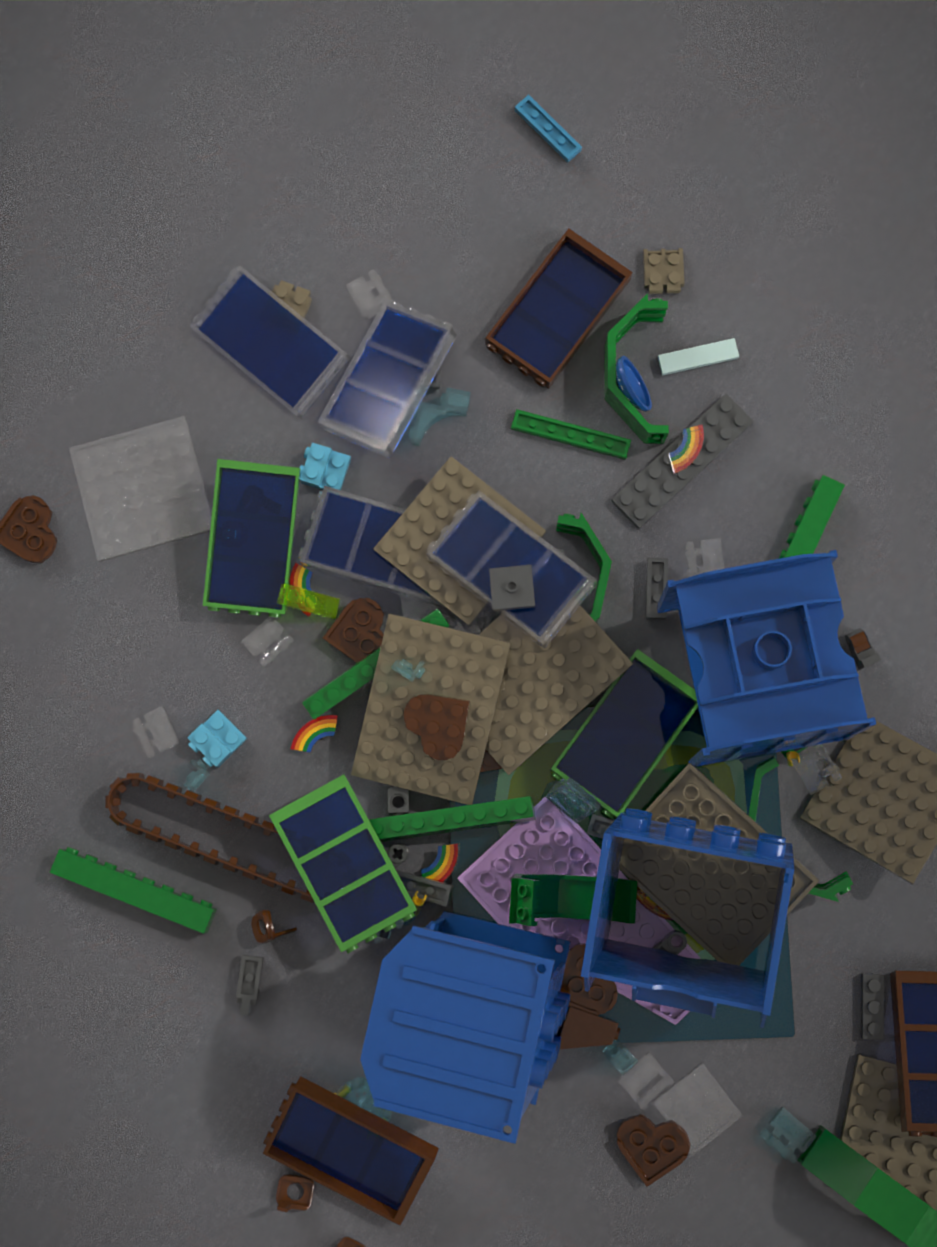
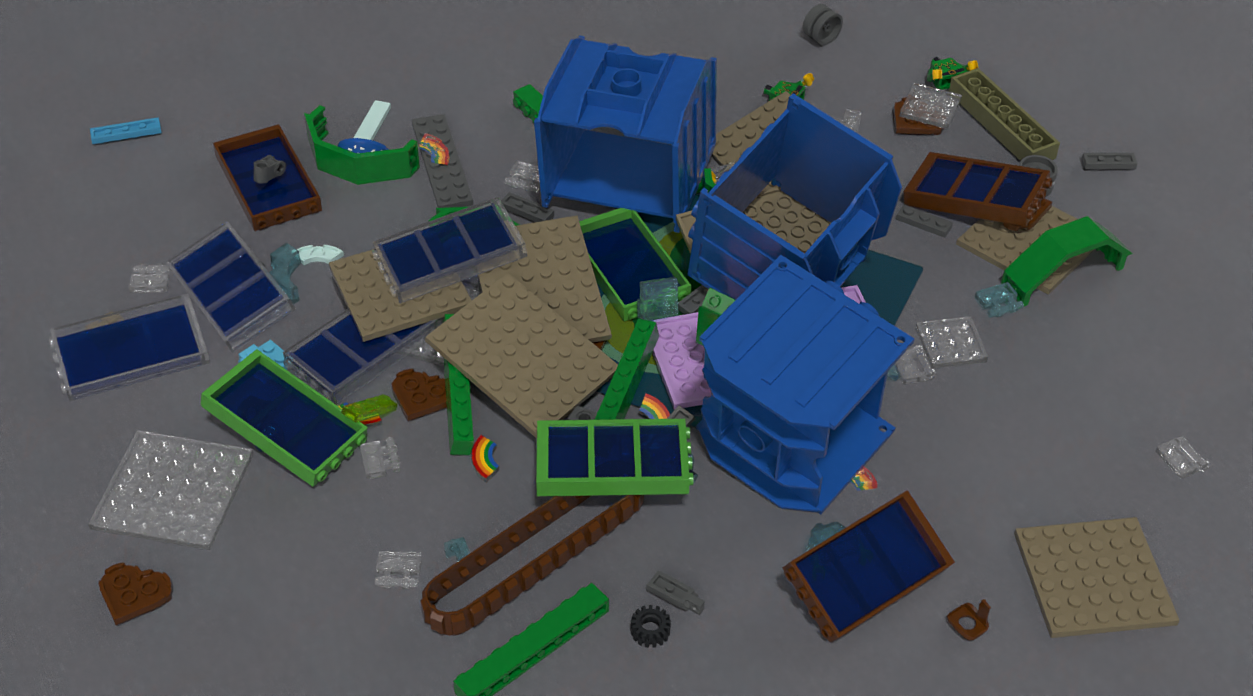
camera: 65 degrees left, 35 degrees down
(190, 982) = (650, 636): none -> black tyre
(216, 739) = (437, 527): medium azure plate -> none
(270, 934) = (642, 550): reddish brown piece -> none
(285, 1203) = (899, 636): reddish brown piece -> none
(405, 669) = (482, 339): clear light blue bracket -> none
(439, 723) = (538, 346): reddish brown plate -> none
(486, 424) = (319, 253): none -> light aqua tile
(512, 587) = (466, 244): dark grey plate -> none
(559, 311) = (267, 169): none -> dark grey piece
(571, 434) = (367, 211): green tile -> none
(651, 1147) = (969, 376): reddish brown plate -> none
(663, 270) = (289, 116): dark tan plate -> none

